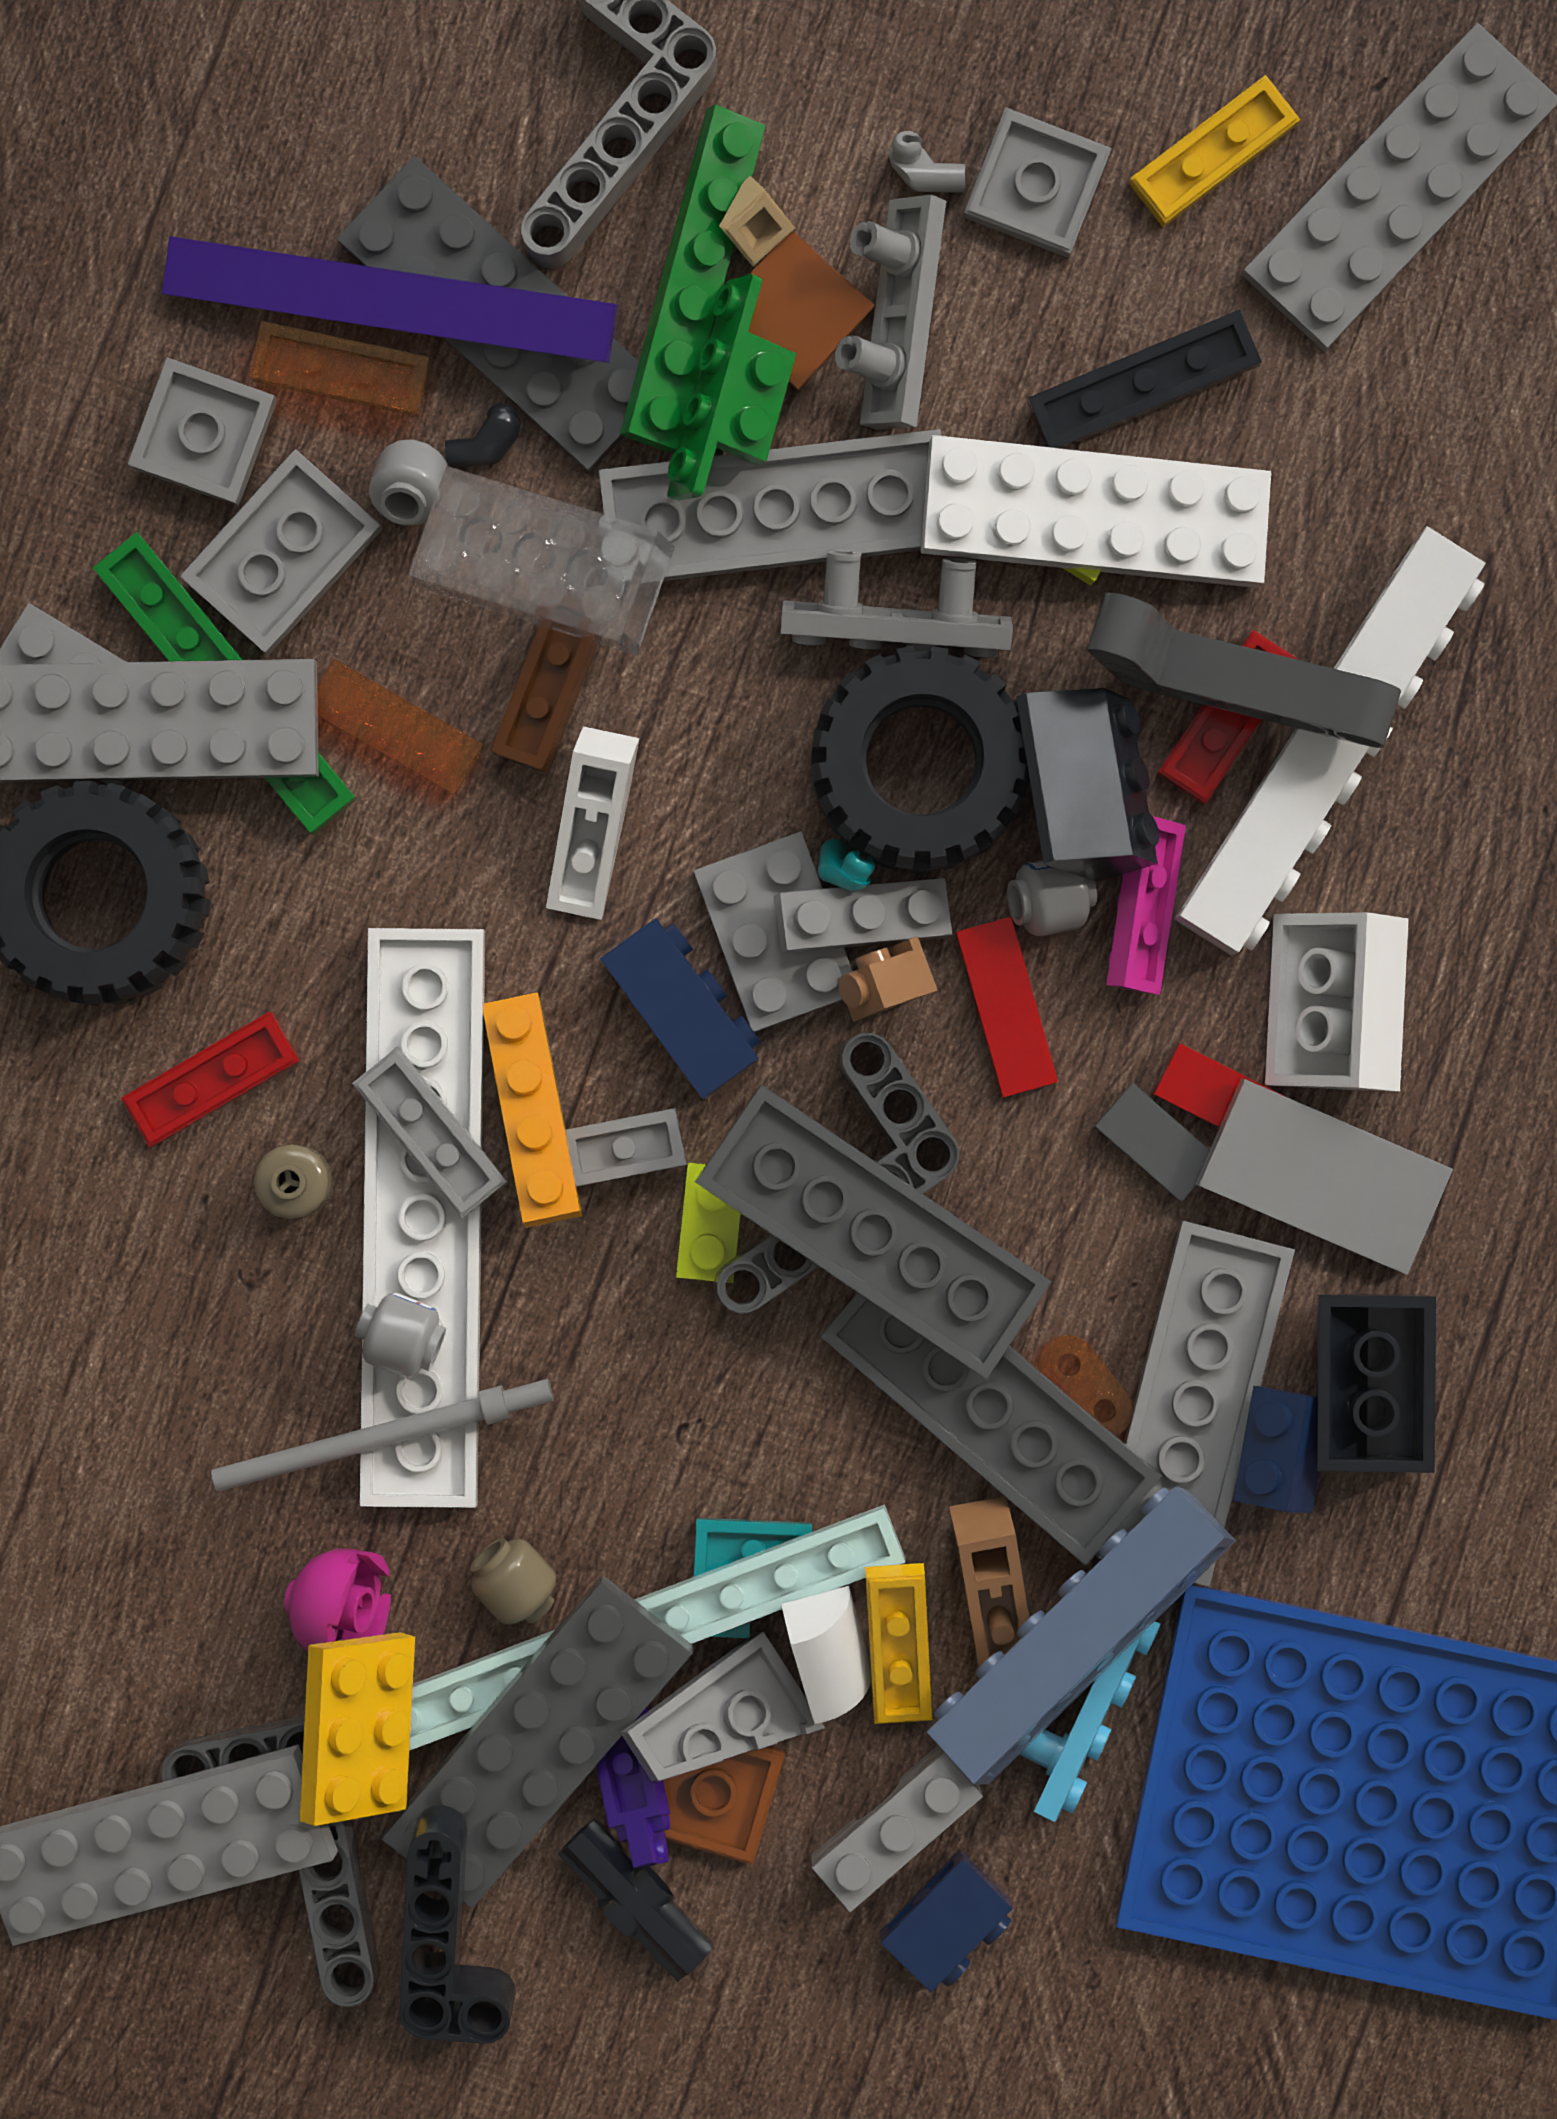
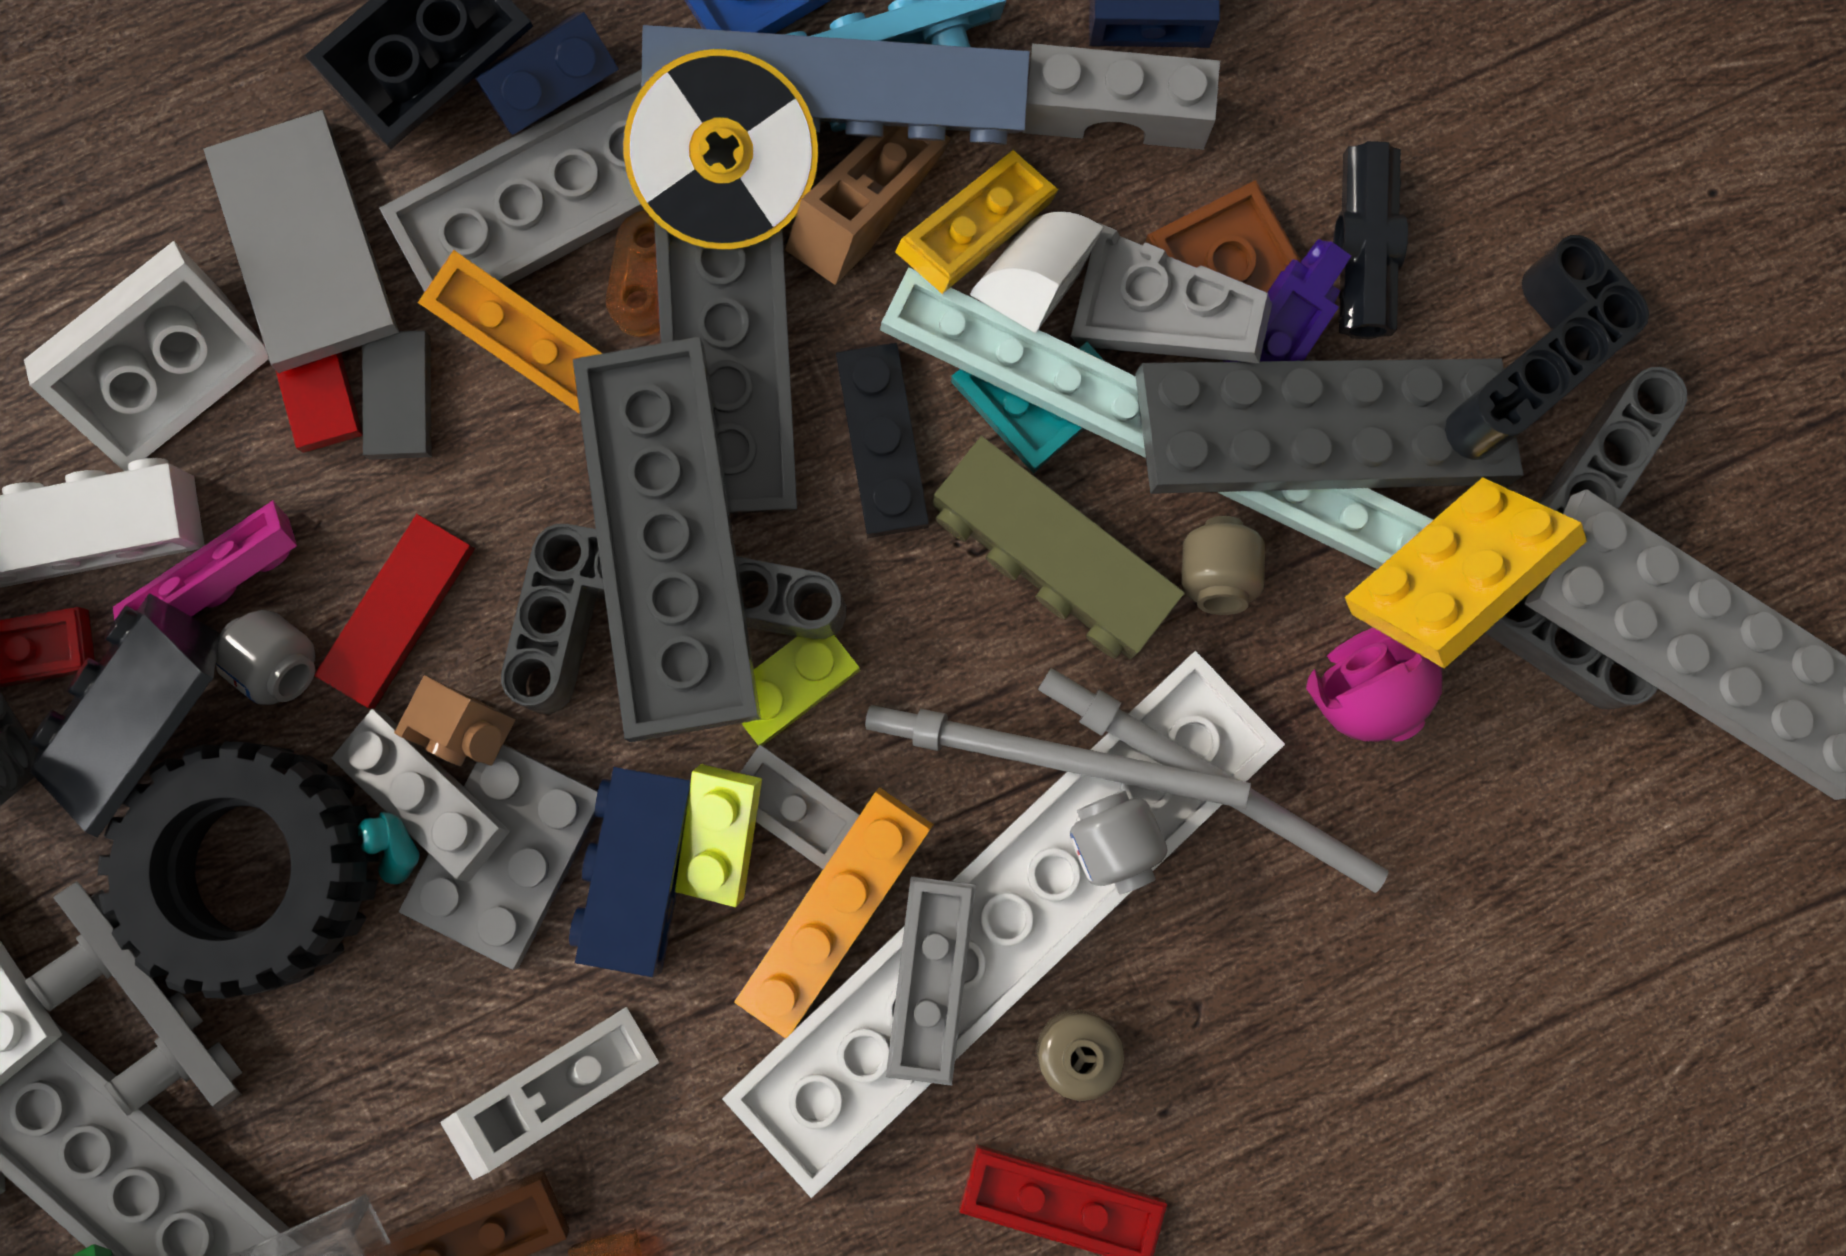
camera: 135 degrees left, 5 degrees down
(588, 1286) = (933, 730): none -> light grey bar
(628, 1481) = (1055, 549): none -> olive brick
(652, 1083) = (718, 835): none -> neon yellow plate
(816, 1438) = (882, 440): none -> black plate
(1119, 1261) = (507, 326): none -> light orange plate
(1124, 1550) = (727, 96): none -> piece

